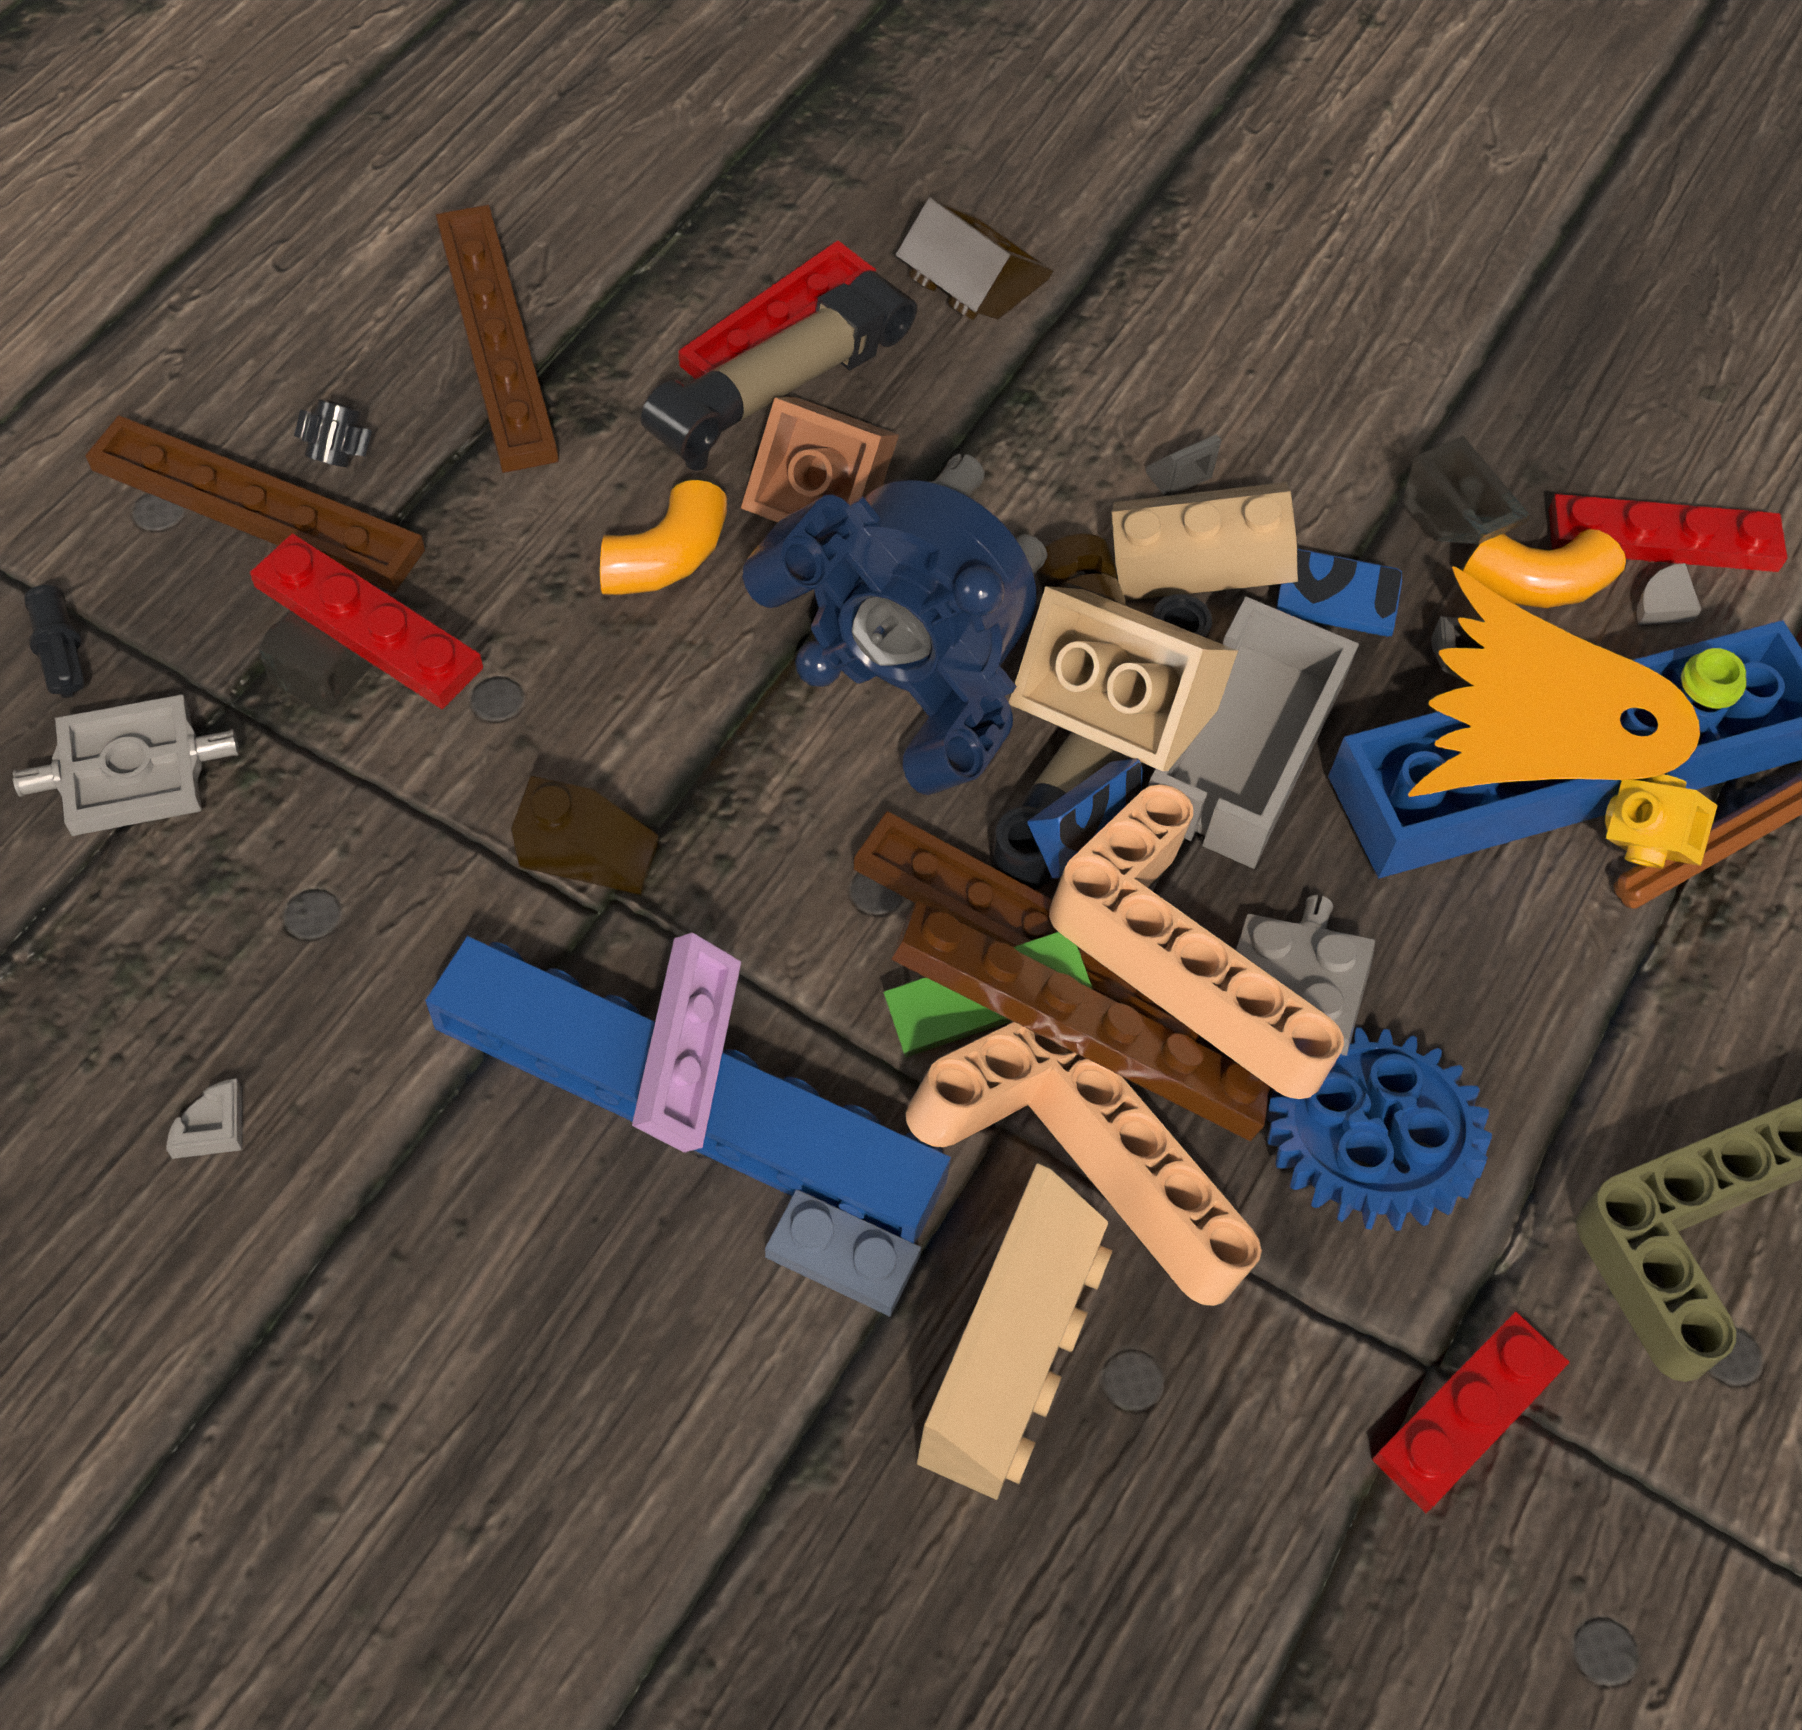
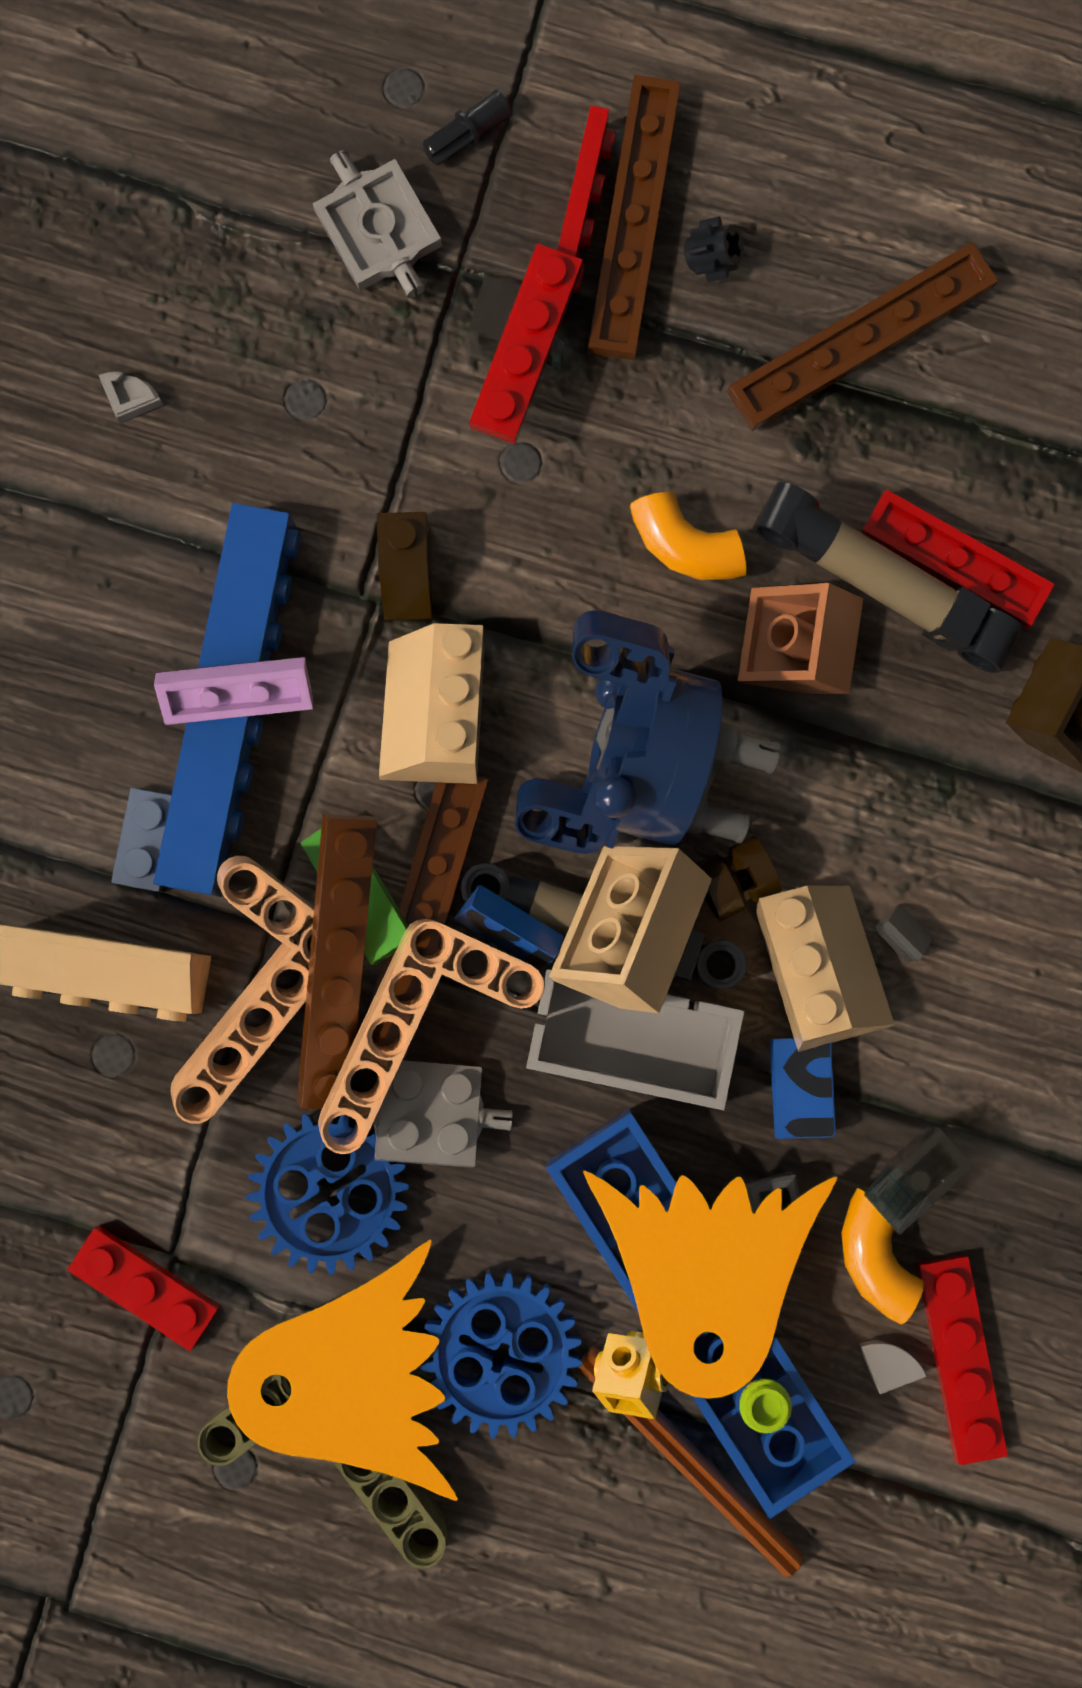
camera: 85 degrees right, 25 degrees up
(187, 534) = (587, 186): none -> red plate
(777, 838) = (433, 705): none -> tan slope
(1636, 1147) = (347, 1382): none -> light orange piece
(1669, 1009) = (484, 1395): none -> blue gear

